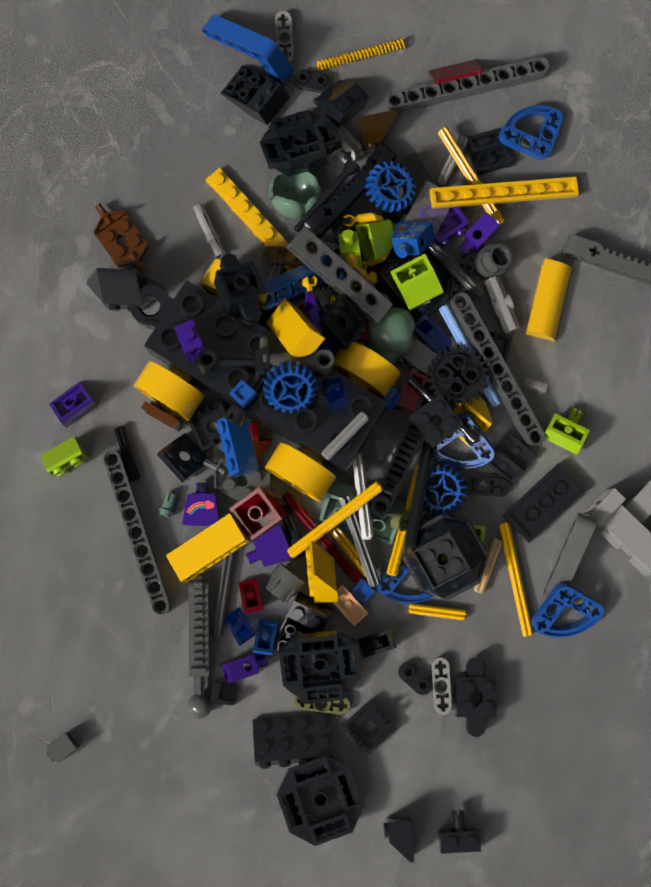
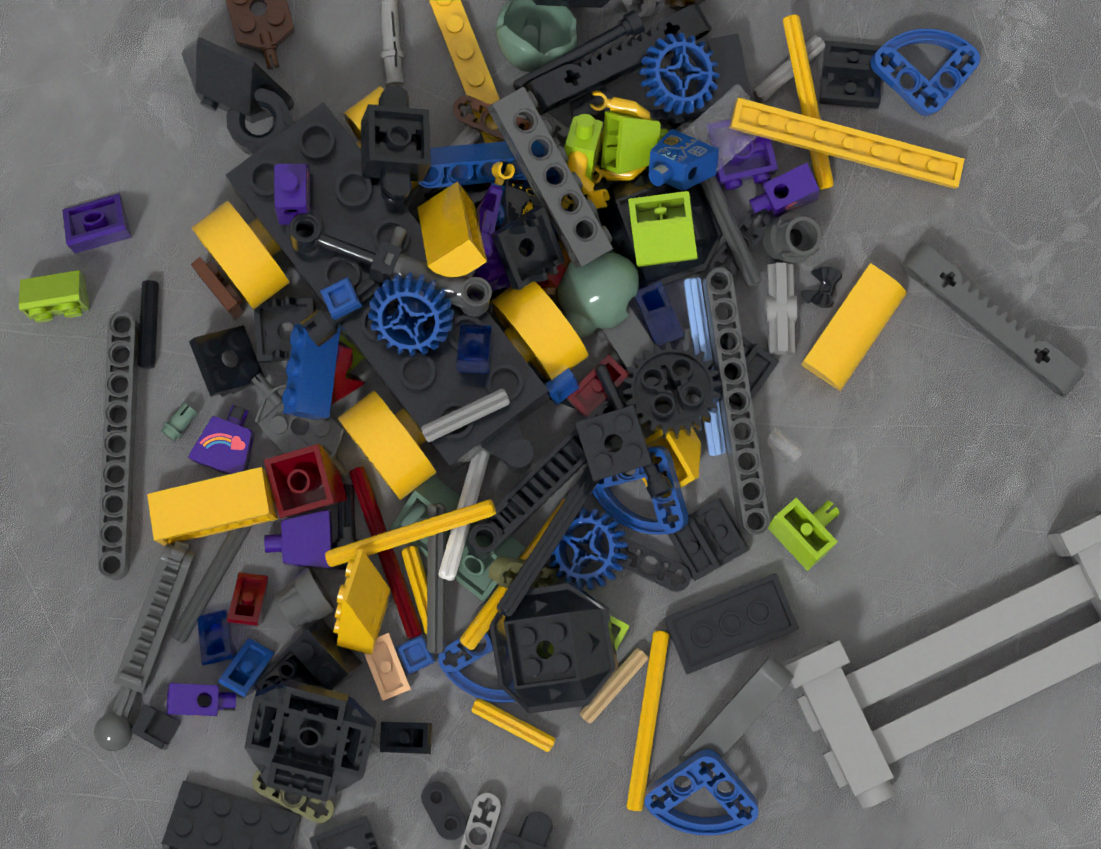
camera: 20 degrees right, 0 degrees up
(522, 276) = (823, 297): none -> black piece

